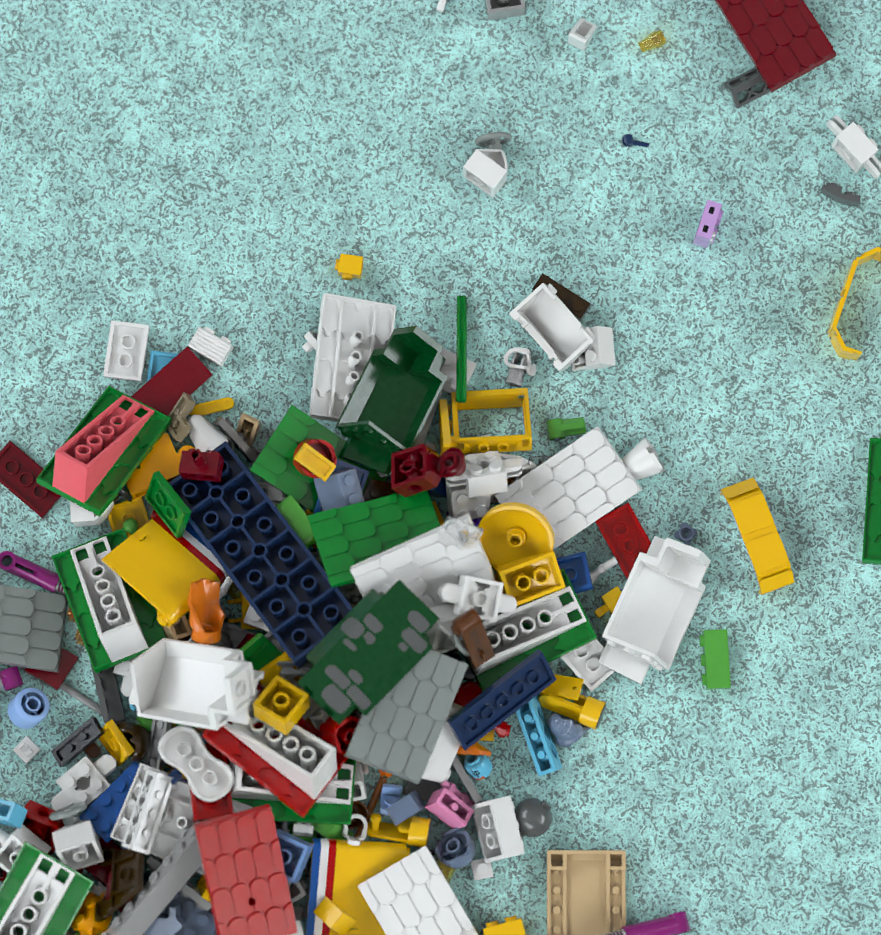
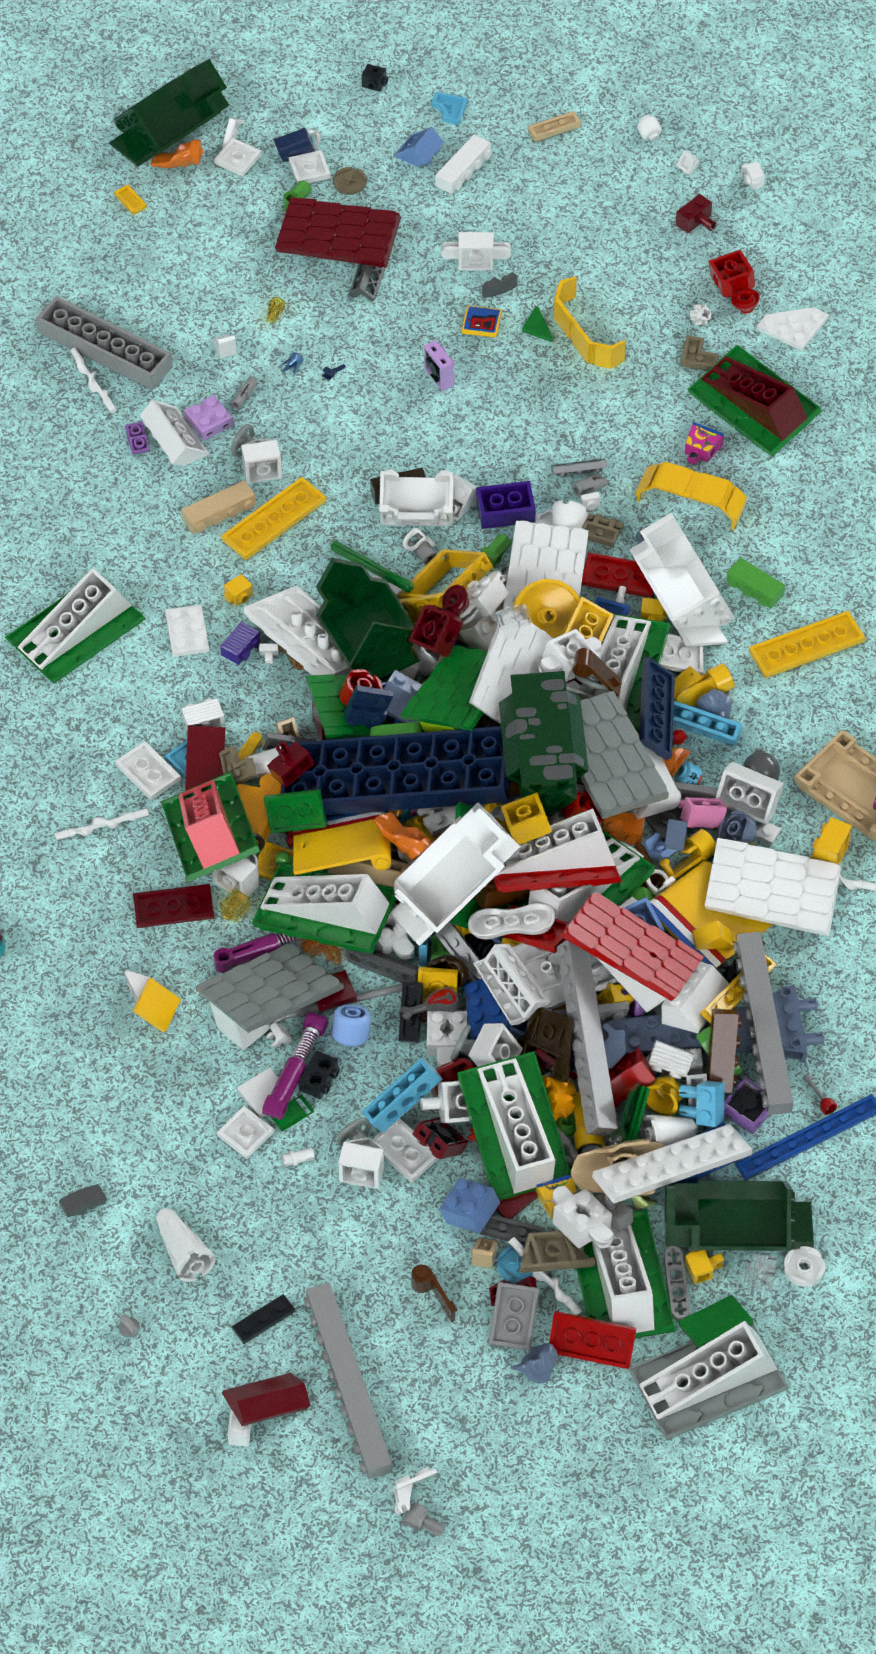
camera: 50 degrees left, 25 degrees down
(26, 749) = (380, 1057): white tile -> none
(54, 367) = (101, 822): none -> white piece
(60, 526) = (235, 905): none -> clear yellow brick
(103, 758) = (441, 999): none -> dark grey piece
(177, 777) = (508, 938): dark blue hand -> none
(208, 175) = (87, 615): none -> piece
(281, 260) = (187, 630): none -> white plate
(299, 480) = (367, 706): none -> dark blue plate
(301, 313) = (240, 643): none -> dark purple brick
(314, 462) = (366, 681): yellow tile -> none
(416, 178) = (218, 507): none -> tan brick
(429, 54) = (137, 438): none -> medium lavender slope
(445, 229) = (273, 518): none -> yellow plate
(457, 78) = (173, 433): none -> white slope
(497, 90) = (208, 417): none -> lavender piece
(560, 91) = (244, 393): none -> light grey pin
(615, 398) = (505, 504): none -> dark purple brick
(616, 102) = (294, 360): none -> flat silver piece
(633, 437) = (545, 517): none -> white tile
(657, 493) = (602, 534): none -> dark tan plate
(681, 460) = (590, 501): none -> white plate
(692, 749) = (806, 644): none -> yellow plate
(696, 443) = (589, 484): none -> light grey hinge
(709, 419) = (579, 467): none -> plate
(791, 213) = (481, 321): none -> slope
(821, 498) = (702, 443): none -> dark pink torso
(827, 259) = (537, 326): none -> green tile

